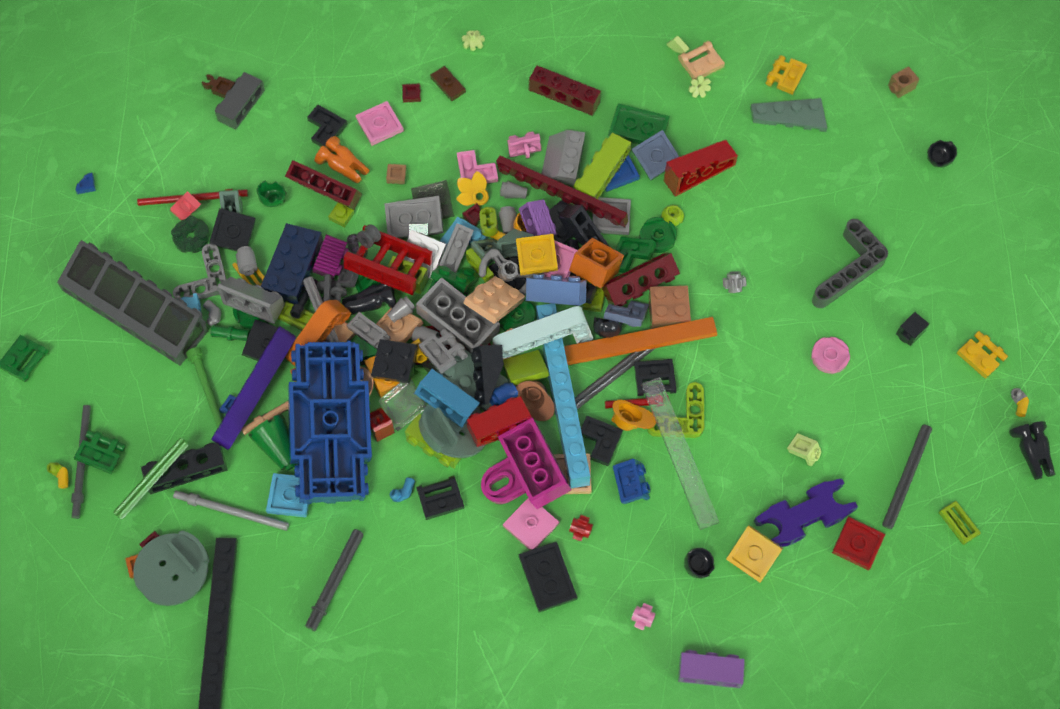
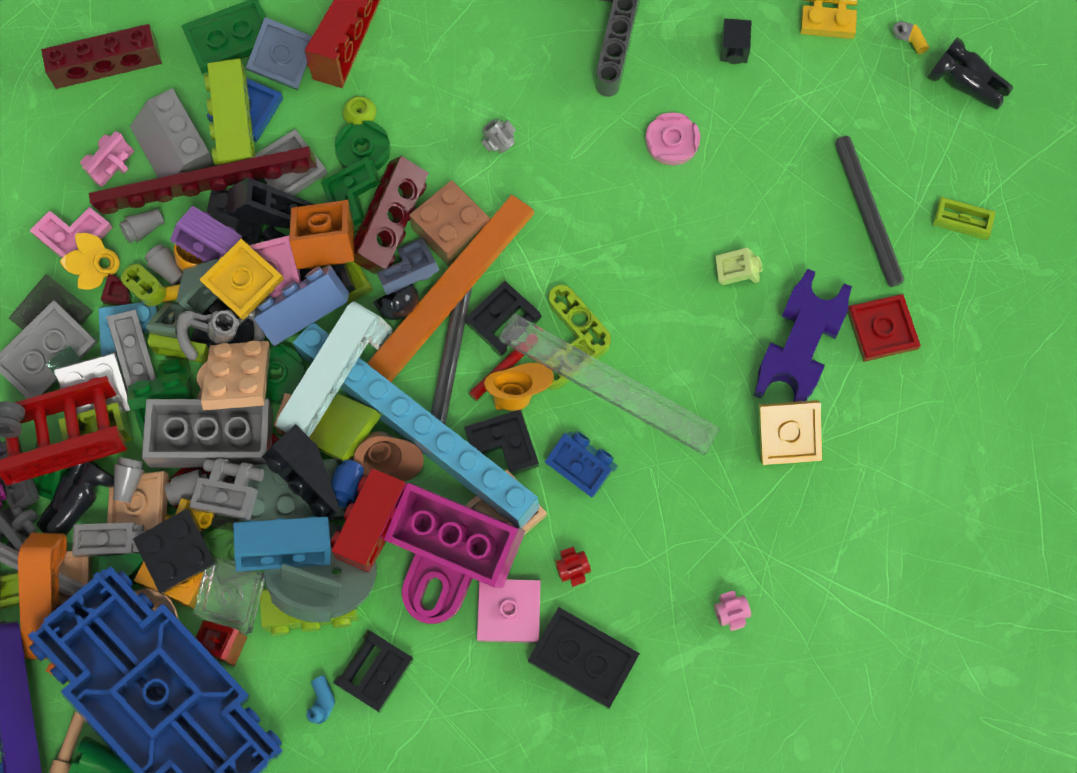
camera: 40 degrees left, 5 degrees up
(699, 563) = (739, 494): black hair -> none
(711, 669) = (856, 606): medium lavender brick -> none

